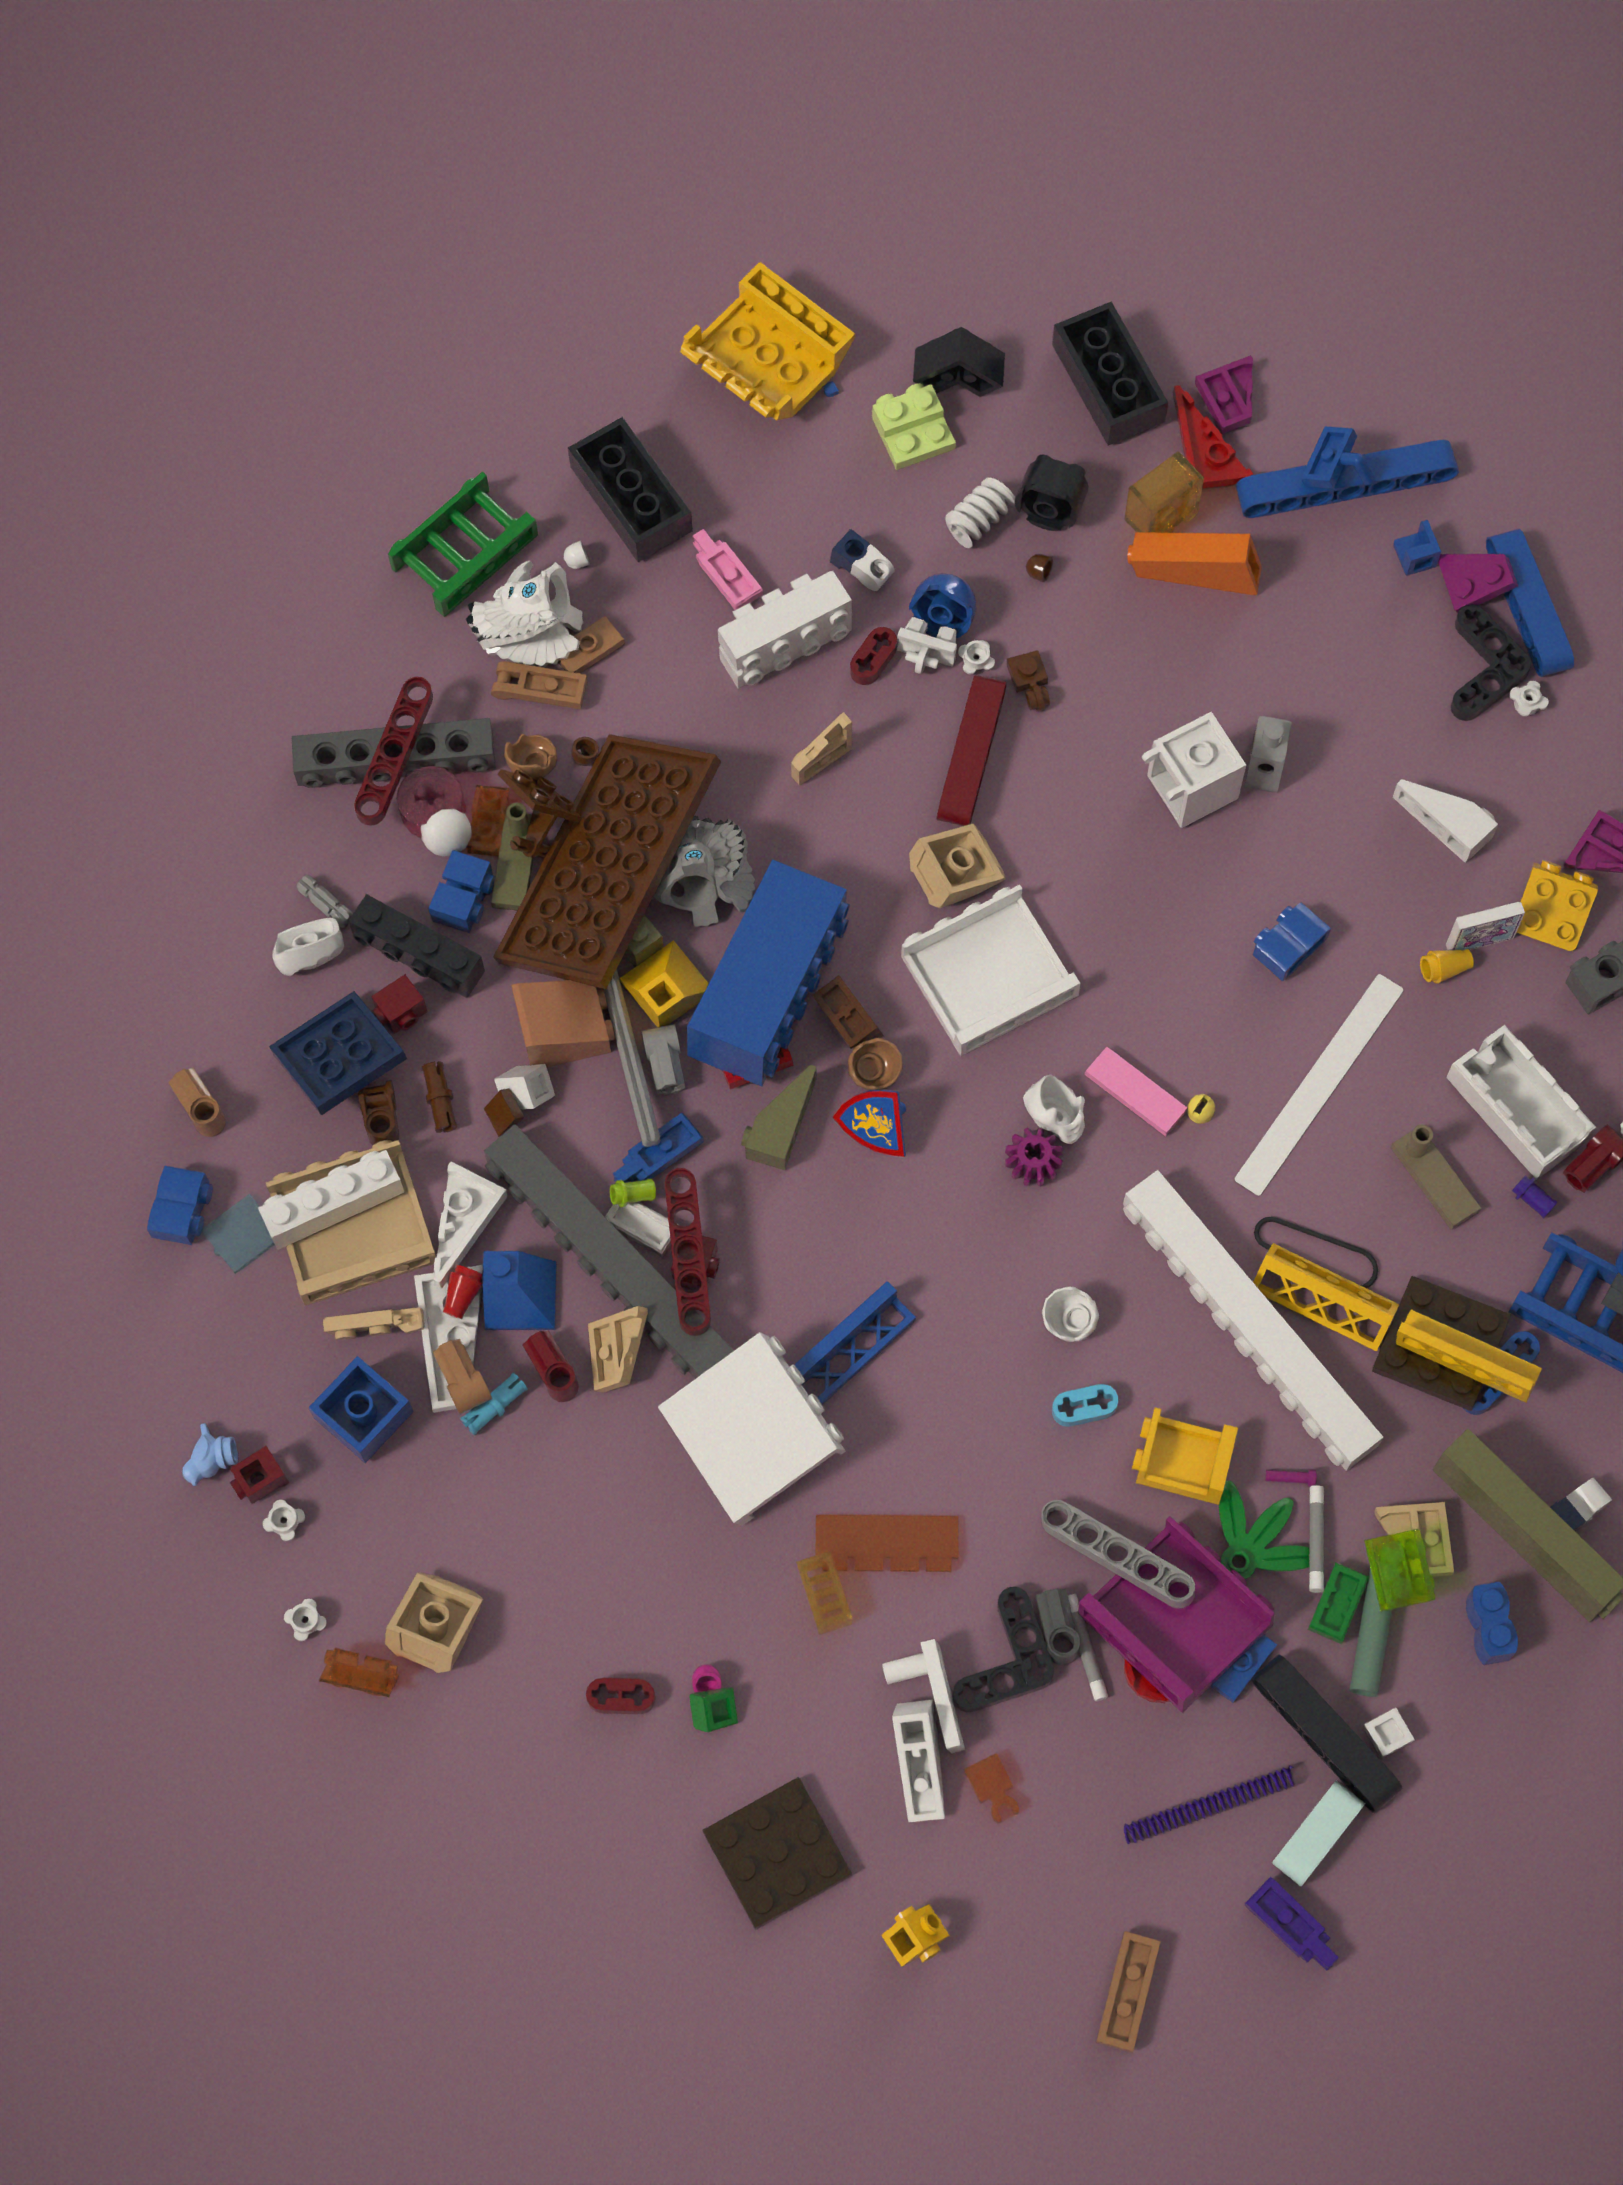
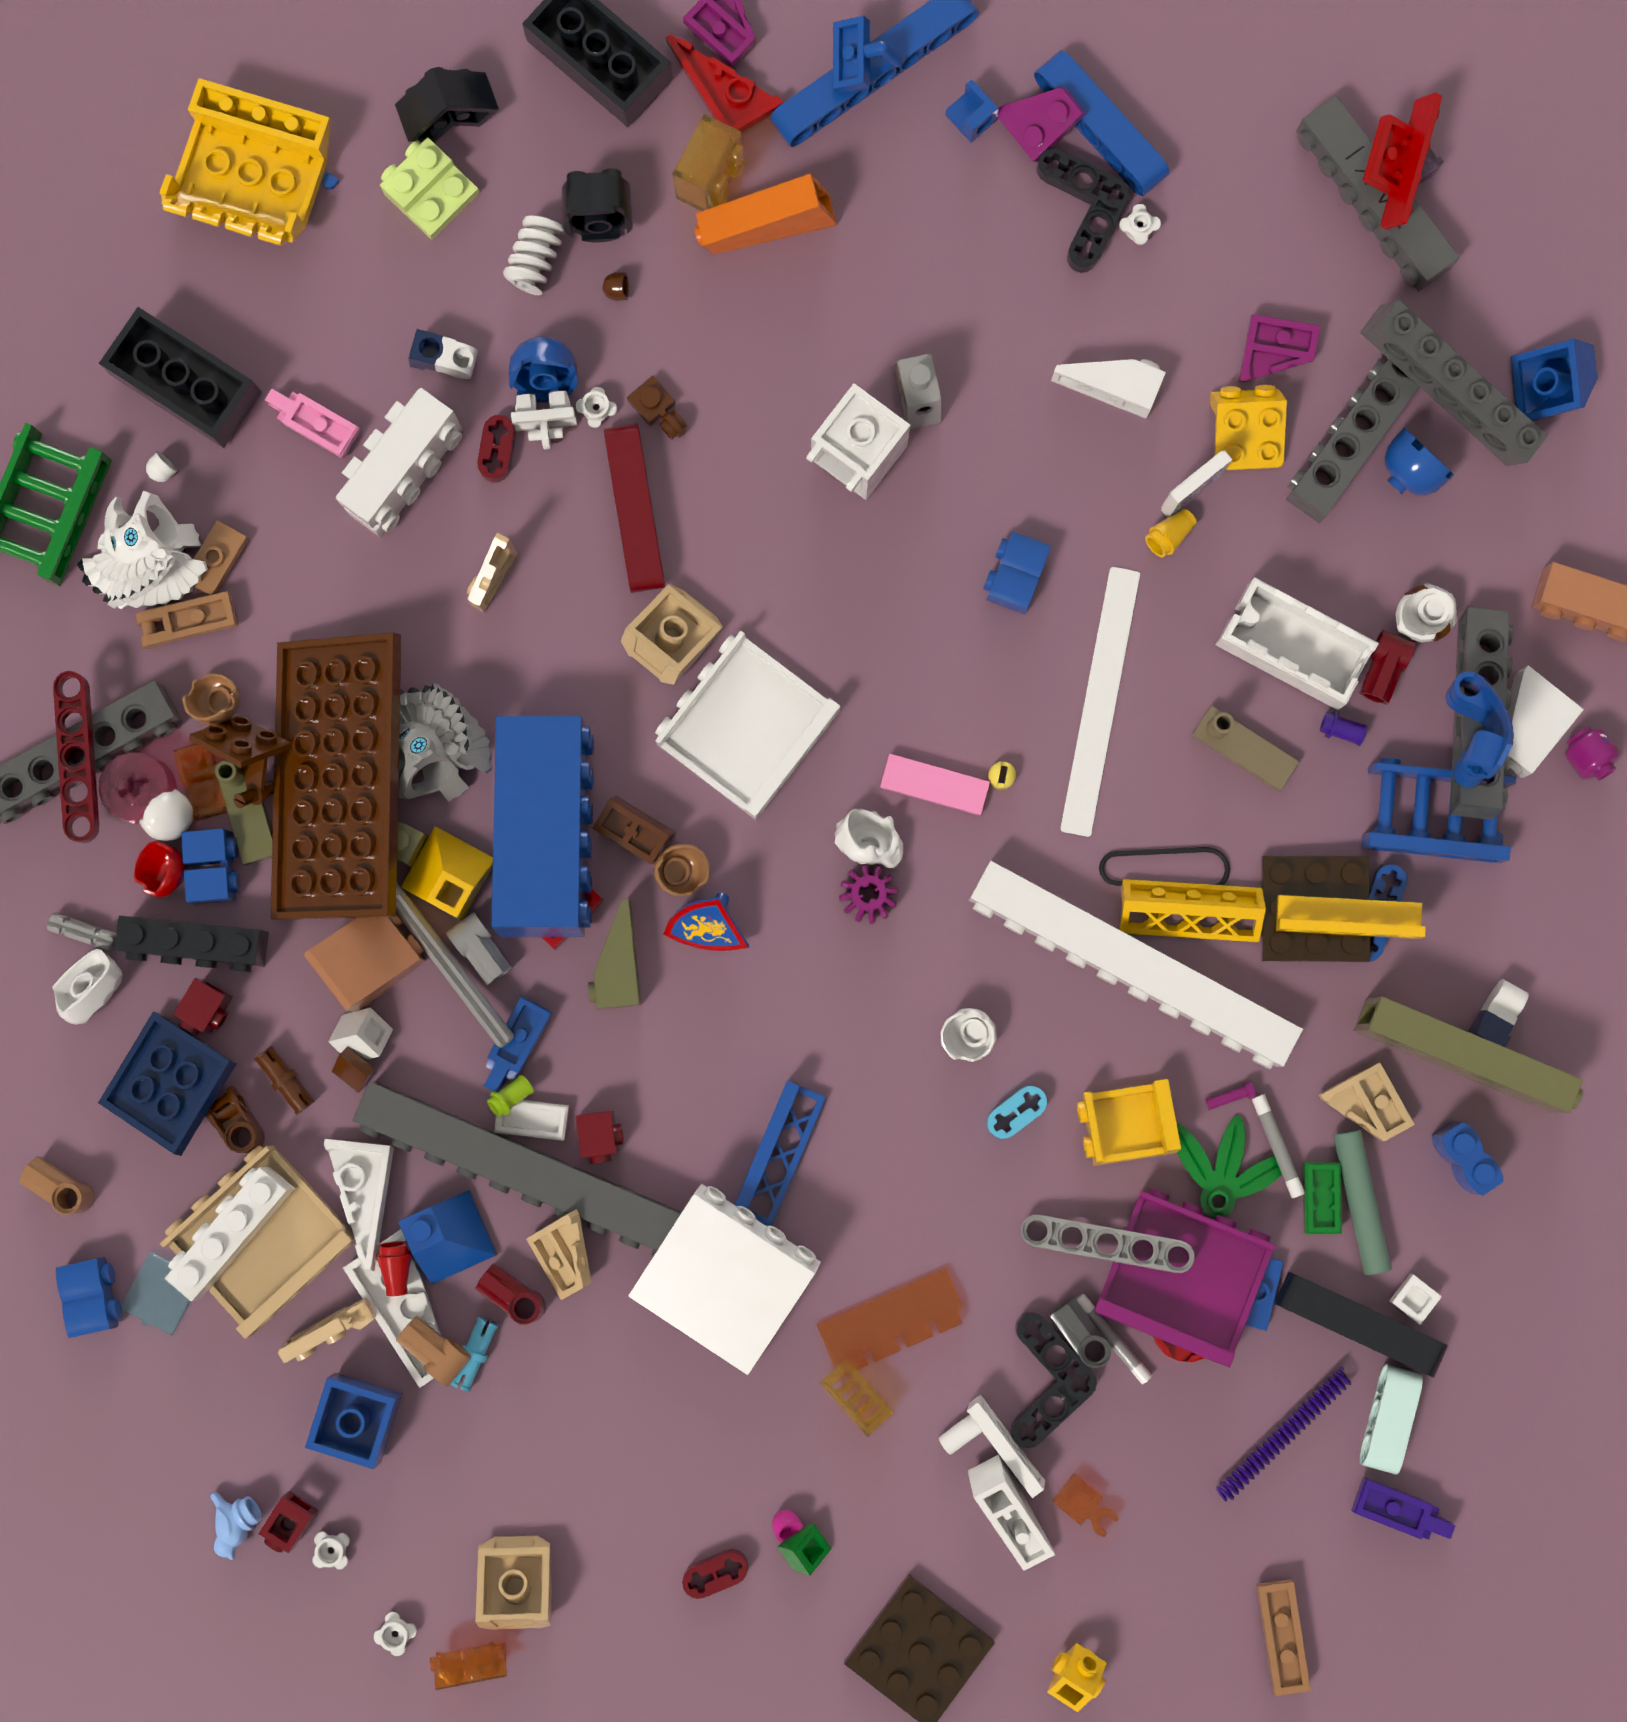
camera: 25 degrees left, 15 degrees up
(418, 874) = (159, 869): none -> red hair
(588, 748) = (263, 664): reddish brown hinge -> none
(693, 1267) = (576, 1124): dark red beam -> none
(1400, 1569) = (1368, 1149): clear neon green bracket -> none

